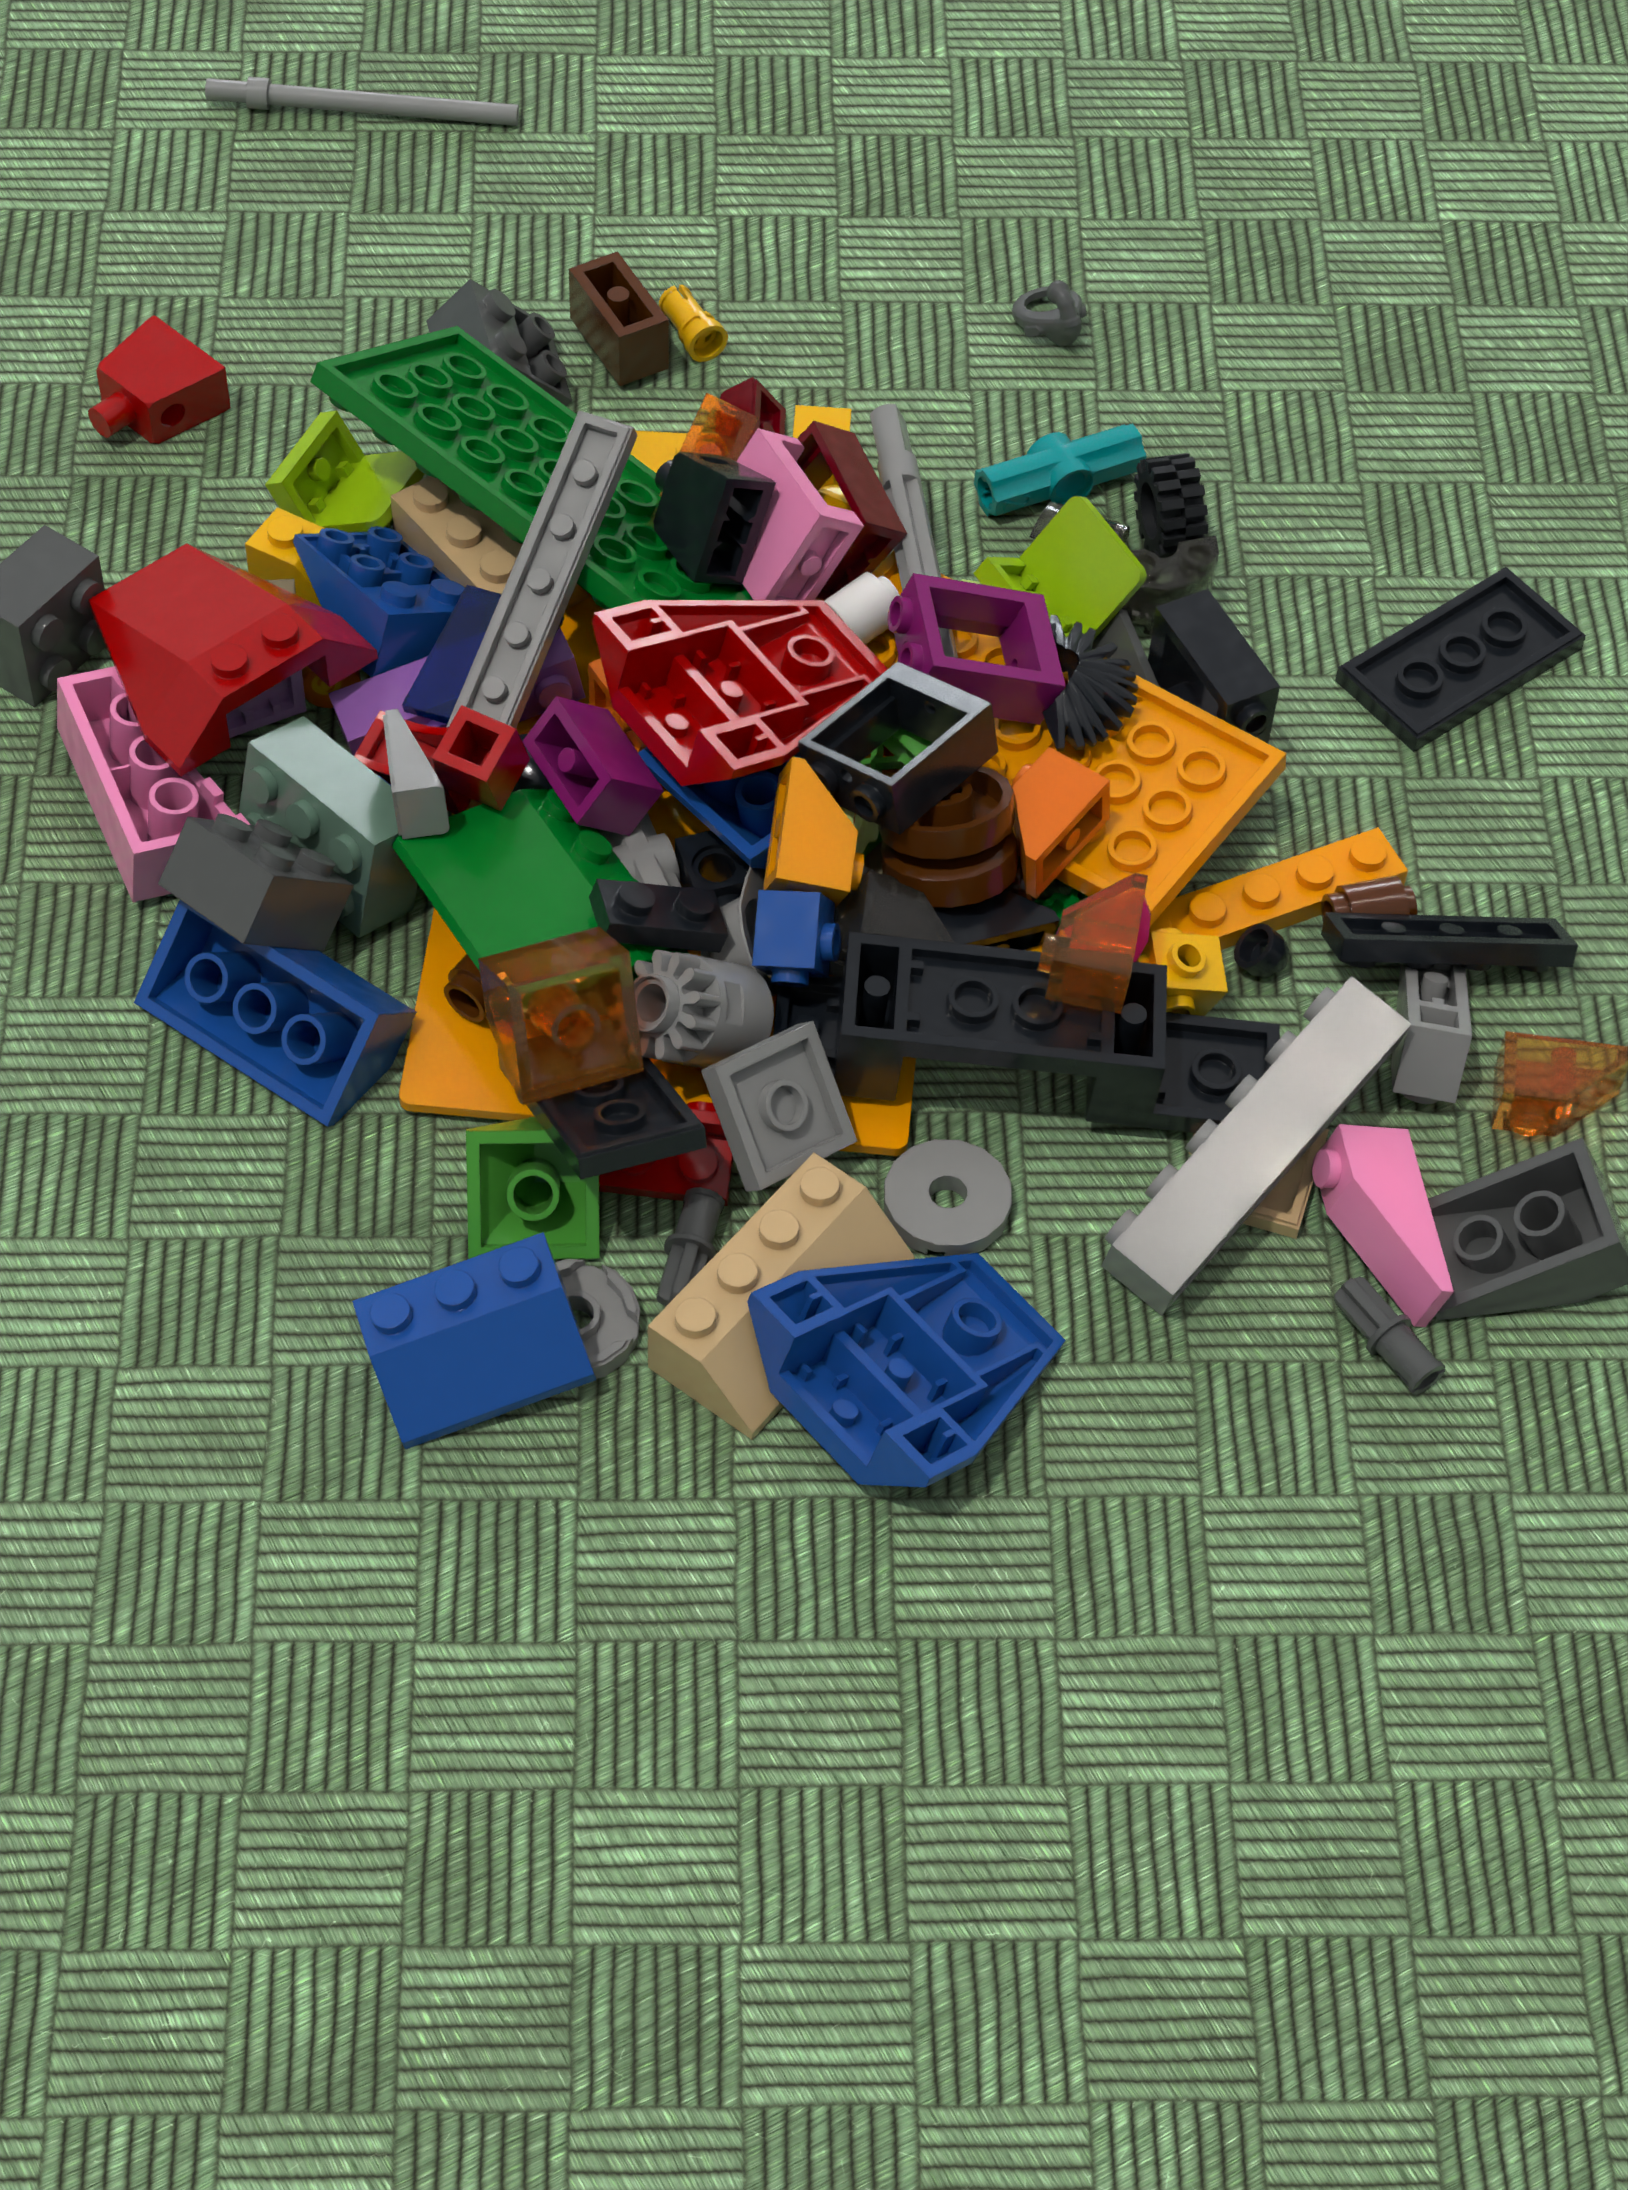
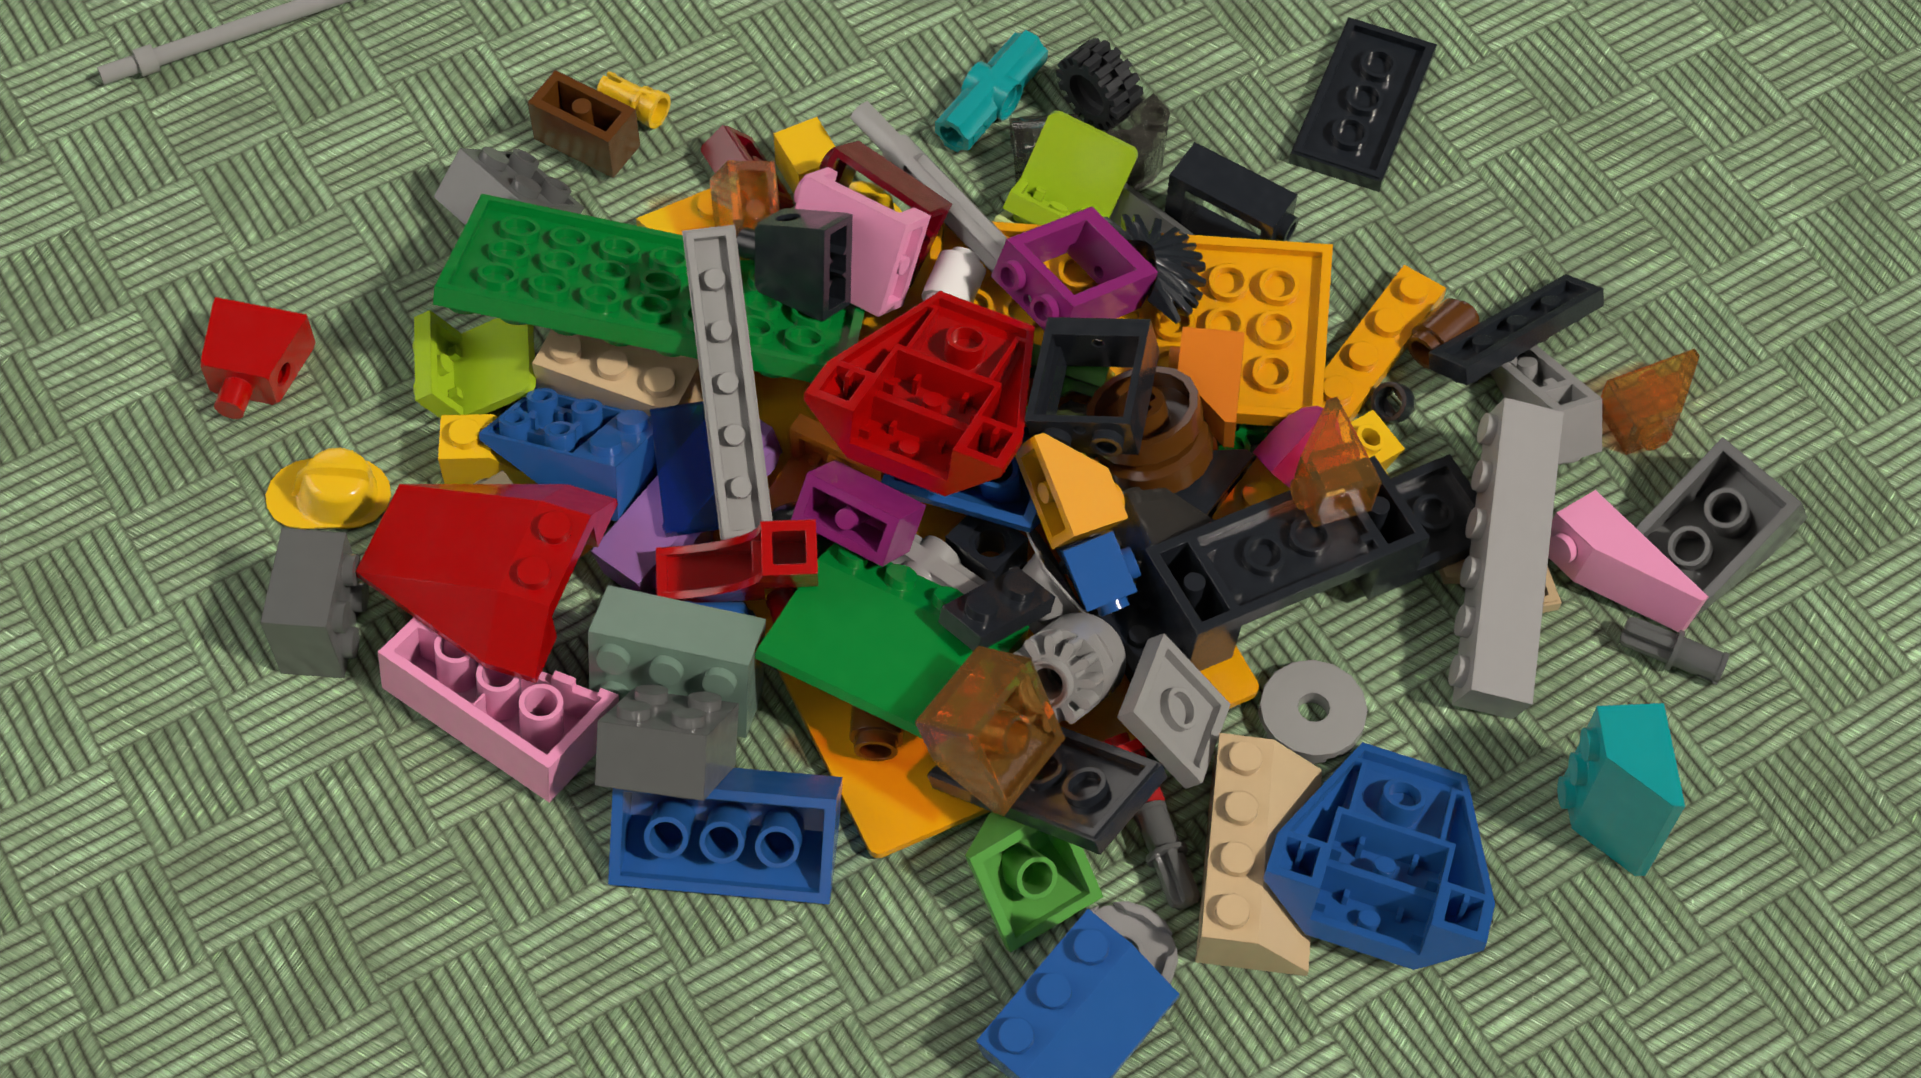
camera: 30 degrees left, 5 degrees up
(136, 531) = (328, 492): none -> yellow piece
(414, 784) = (750, 602): light grey slope -> none
(1199, 1402) = (1624, 784): none -> teal slope

